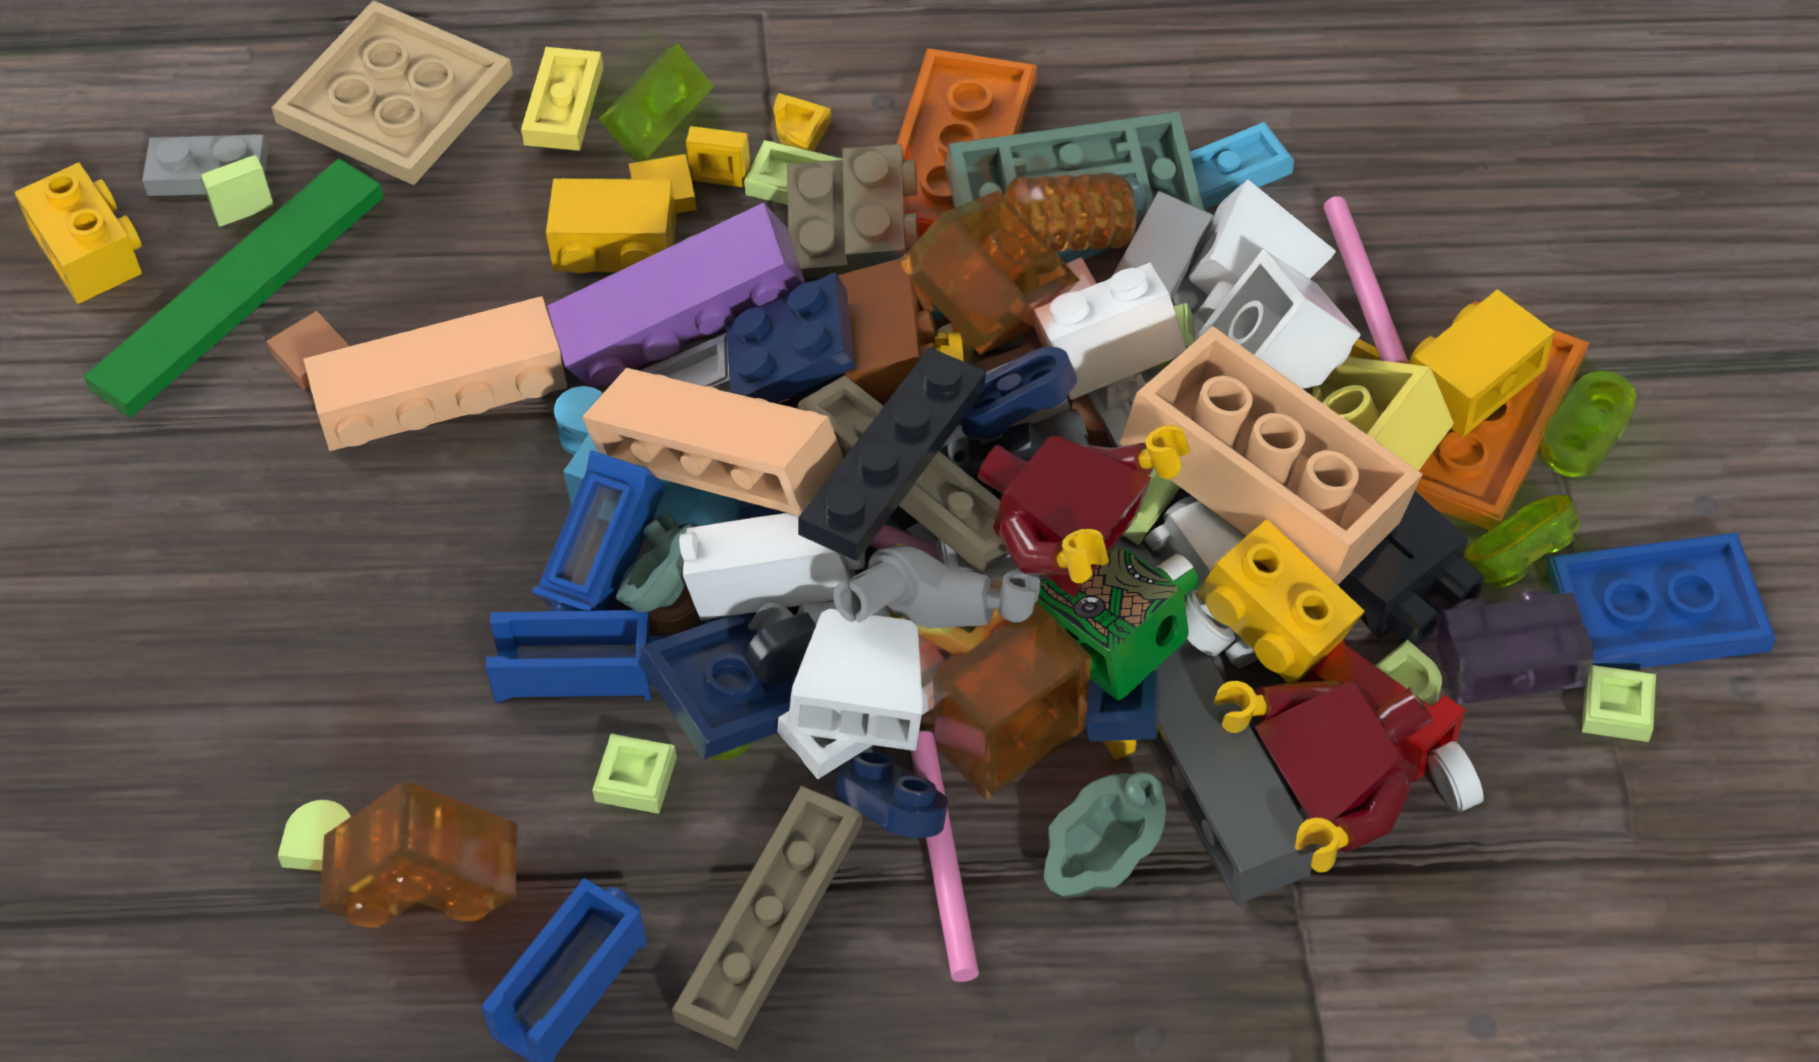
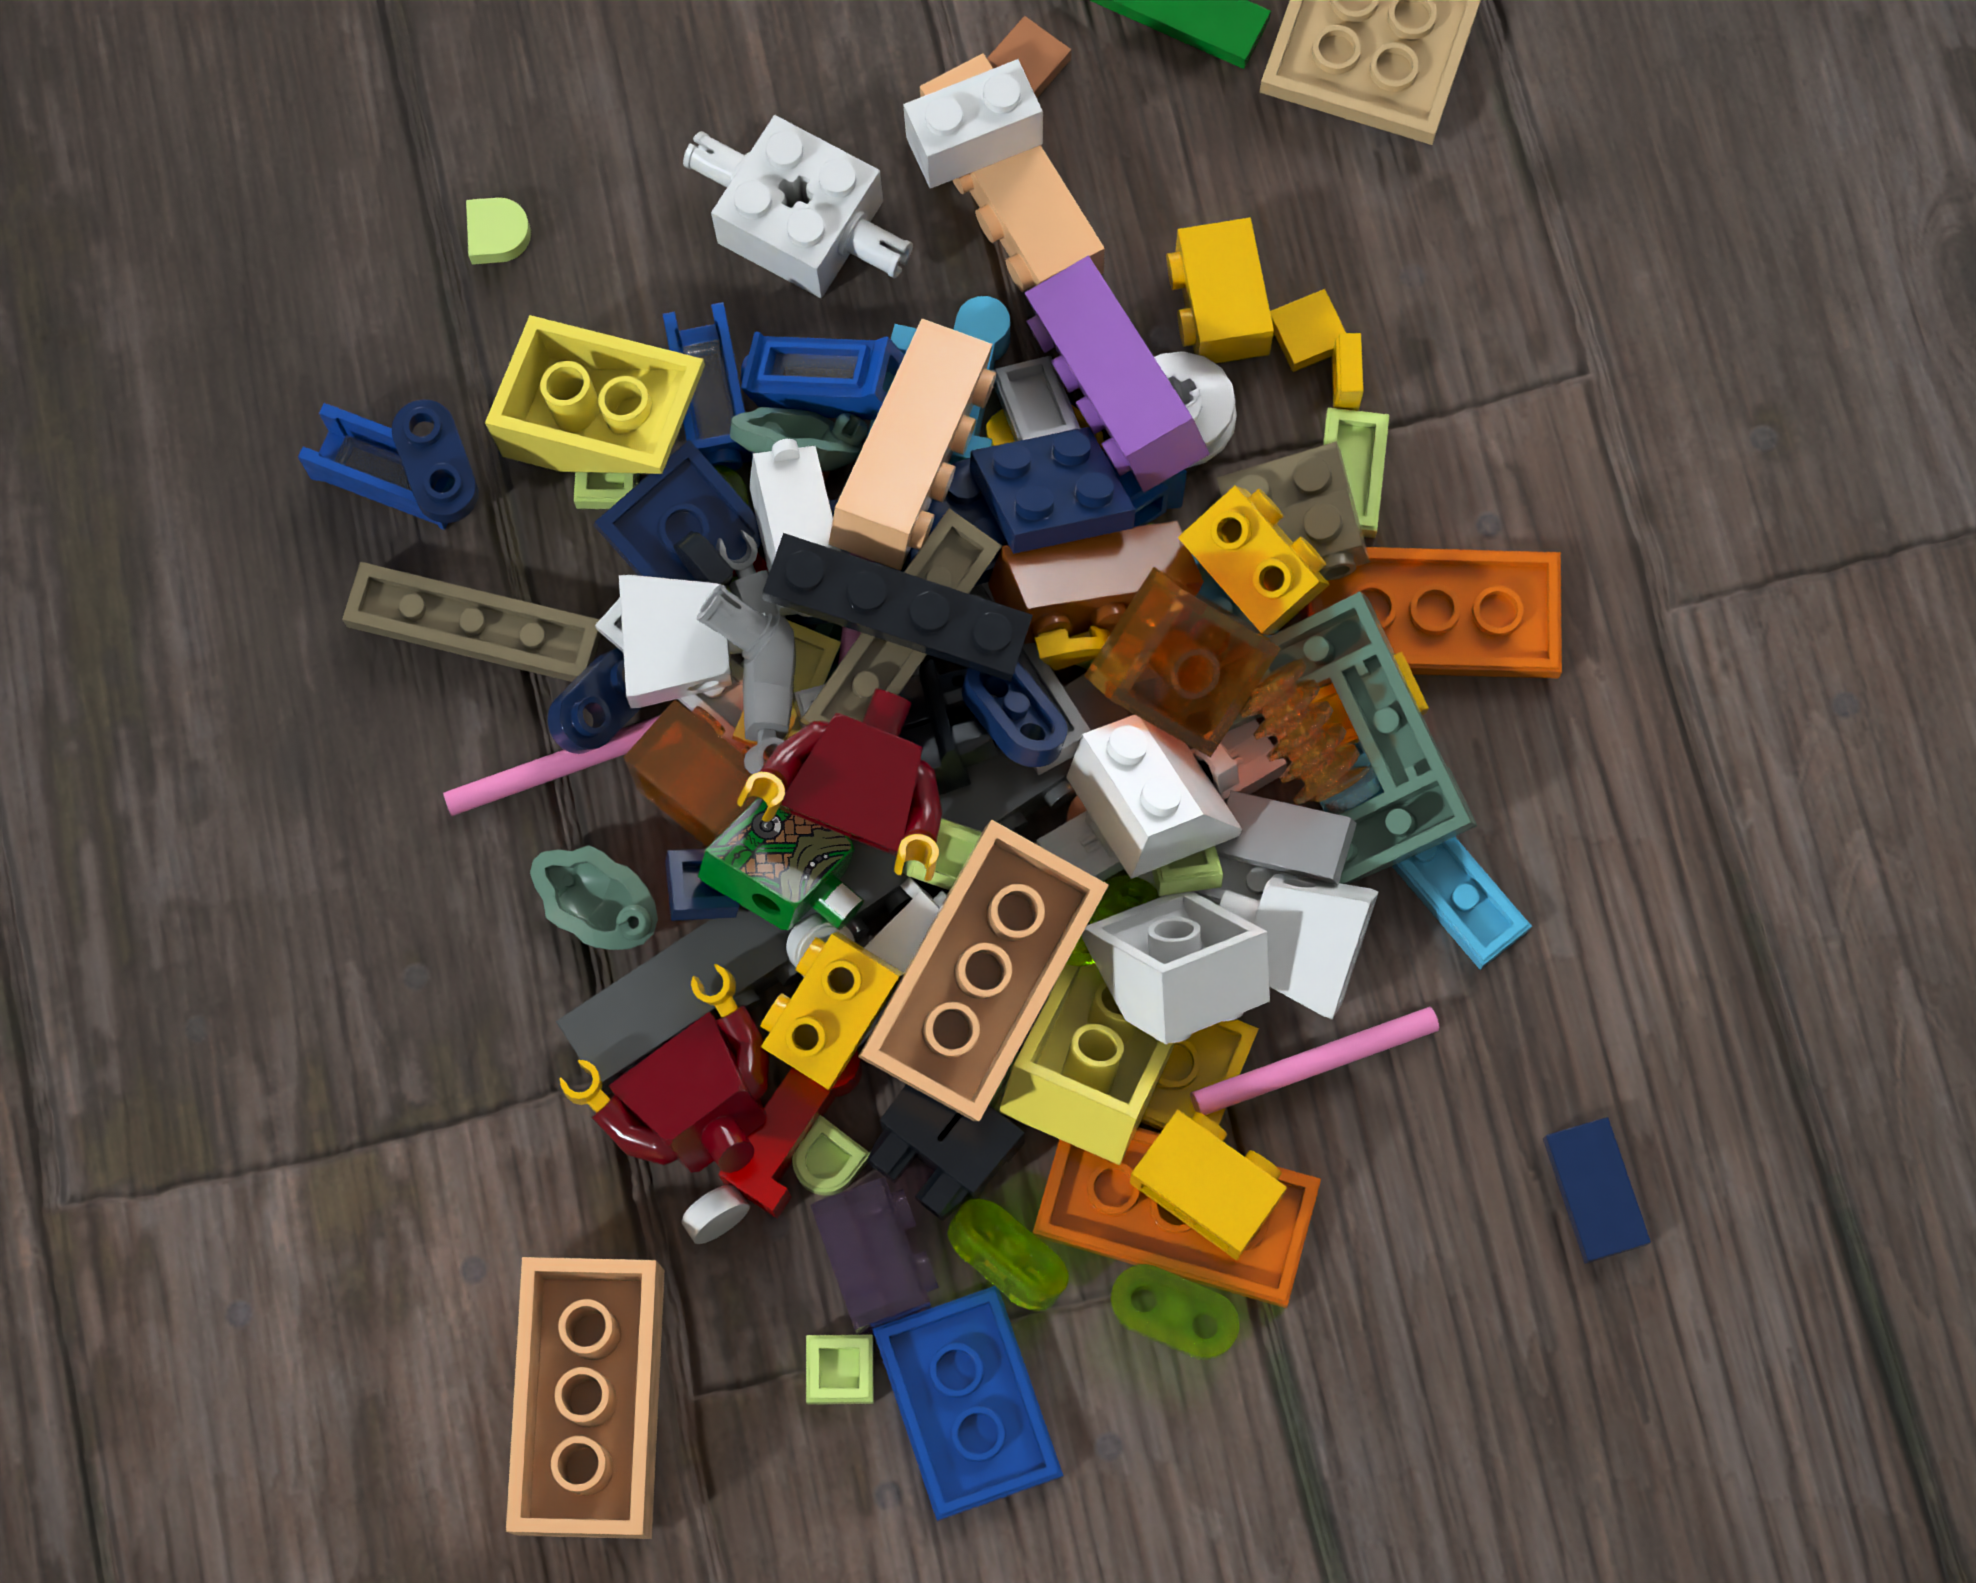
camera: 80 degrees right, 20 degrees up
(386, 356) = (974, 123): none -> white brick
(401, 547) = (797, 206): none -> white brick
(419, 850) = (457, 304): clear orange brick -> none
(562, 98) = (1401, 201): light yellow plate -> none
(567, 738) = (591, 401): none -> light yellow slope
(588, 896) = (433, 458): none -> dark blue plate
(656, 103) = (1411, 295): clear neon green plate -> none
(800, 122) = (1426, 446): yellow tile -> none
(889, 211) = (1255, 558): none -> yellow brick
(1504, 122) = (1596, 1190): none -> dark blue tile
(1647, 906) = (586, 1398): none -> light nougat brick

